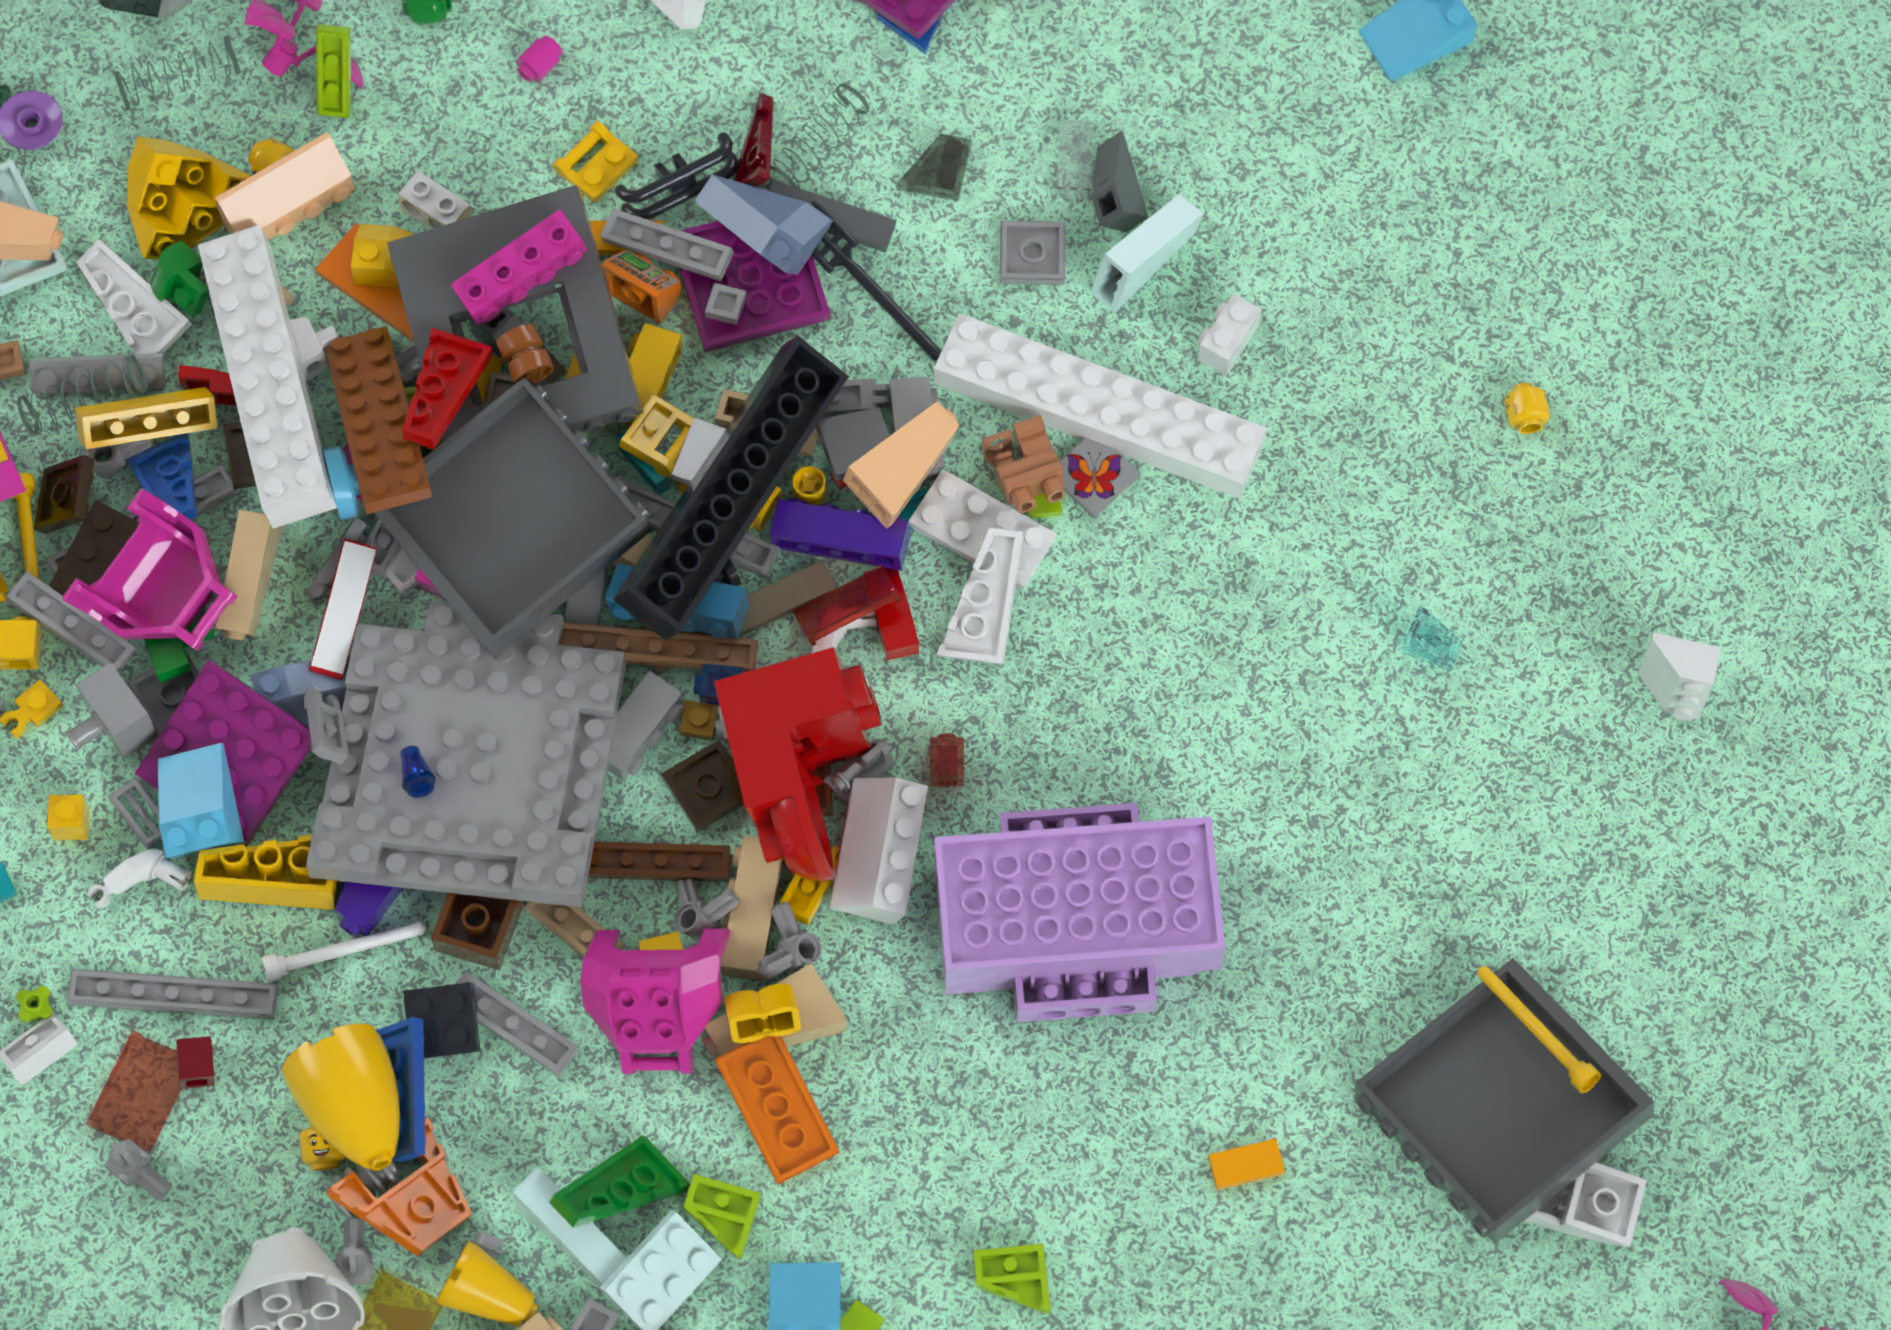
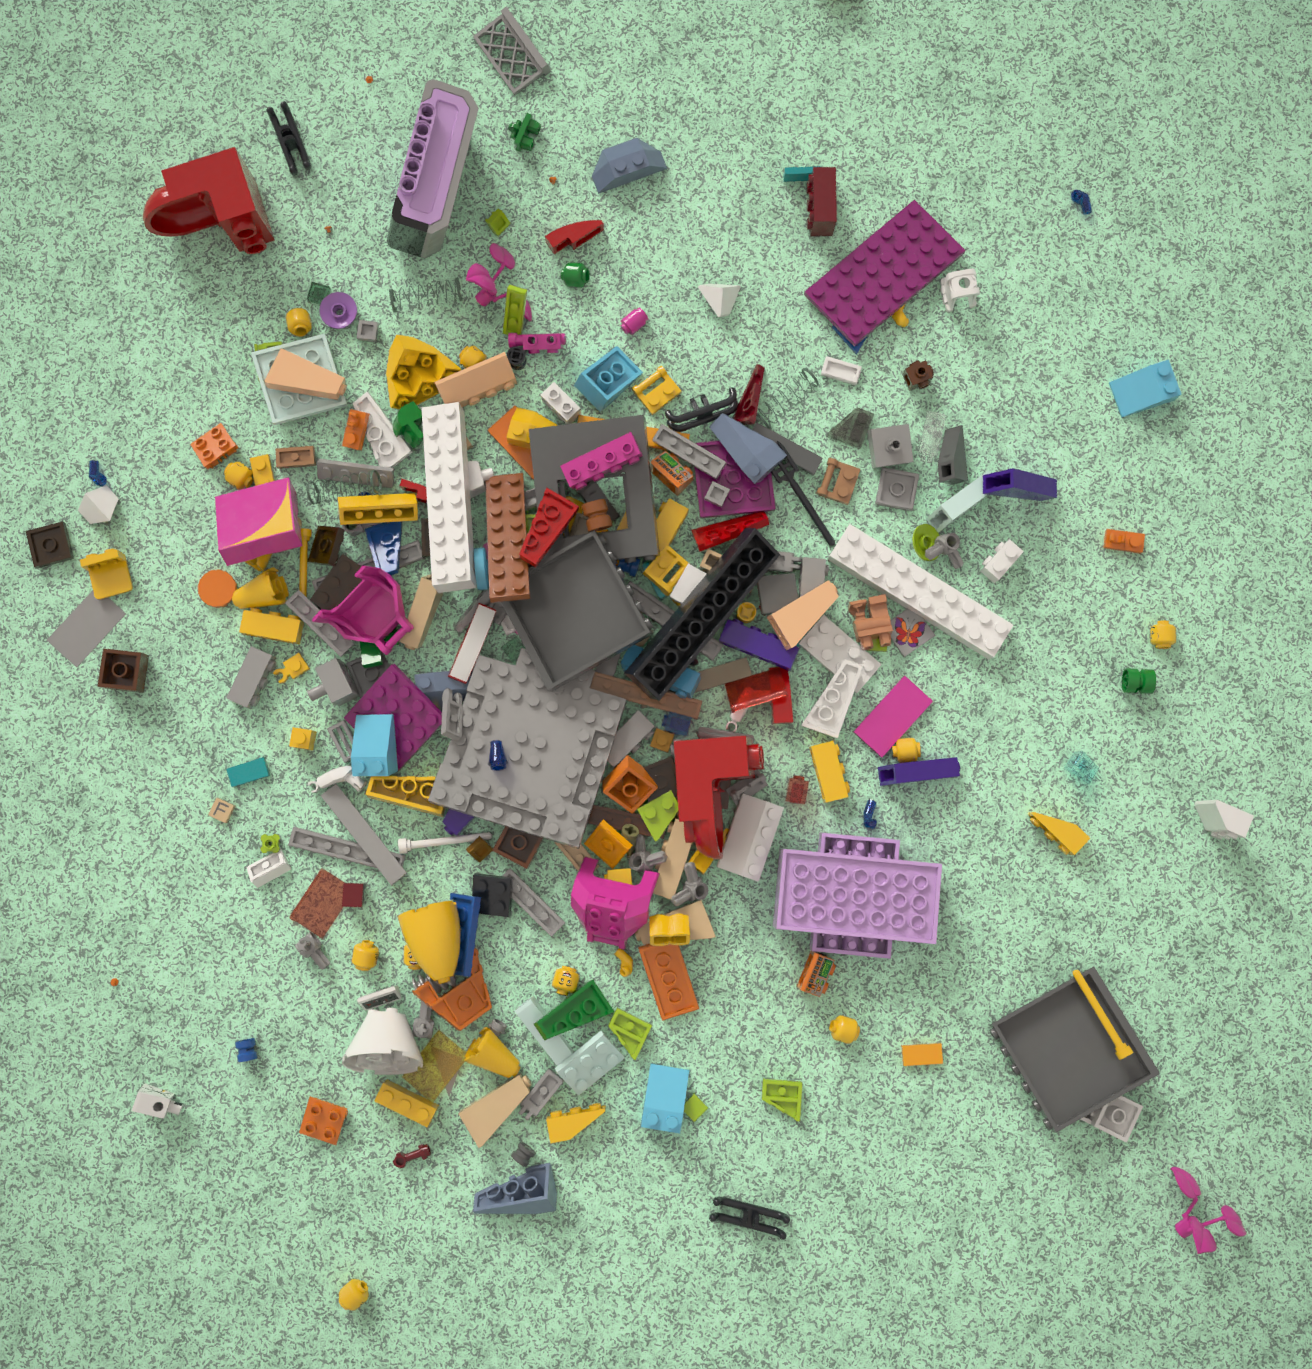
camera: 10 degrees right, 15 degrees up
(85, 145) = (367, 331): none -> light grey plate
(87, 303) = (355, 429): none -> orange plate
(199, 959) = (364, 834): none -> light grey tile
(232, 1162) = (365, 955): none -> yellow head
(266, 1225) = (379, 998): none -> white slope
(354, 153) = (517, 362): none -> black wheel
(386, 116) = (542, 342): none -> dark pink brick
(408, 949) = (479, 849): none -> pearl gold plate
(413, 612) = (513, 648): none -> clear green tile
(508, 155) = (607, 378): none -> medium azure slope
(594, 1142) = (565, 980): none -> yellow head
(600, 443) = (630, 568): none -> blue wheel
(632, 899) = (608, 844): none -> light orange tile
(653, 794) = (629, 784): none -> orange slope
(665, 887) = (630, 833): none -> olive hinge
(698, 1097) = (626, 962): none -> yellow arm
(713, 835) = (659, 814): none -> lime wing
(750, 361) = (721, 532): none -> red wing
(903, 82) = (841, 370): none -> white tile
(941, 257) = (844, 484): none -> medium nougat plate
(998, 720) = (829, 771): none -> yellow brick
(1006, 183) = (890, 446): none -> light grey brick
(1033, 66) = (918, 375): none -> reddish brown brick
(1034, 1053) = (816, 973): none -> slope
(1078, 781) = (868, 813): none -> clear blue arm
(1092, 616) = (893, 716): none -> dark pink tile
(1097, 325) = (924, 538): none -> lime dish
(1101, 1141) = (844, 1029): none -> yellow head
(1125, 663) = (906, 750): none -> yellow head
(1131, 324) = (947, 545): none -> light grey axle
(1150, 692) = (919, 771): none -> dark purple slope
(1235, 205) = (1020, 485): none -> dark purple slope
(1418, 751) = (1066, 834): none -> yellow slope
(1432, 272) = (1124, 541): none -> orange plate
(1499, 486) = (1138, 681): none -> green wheel

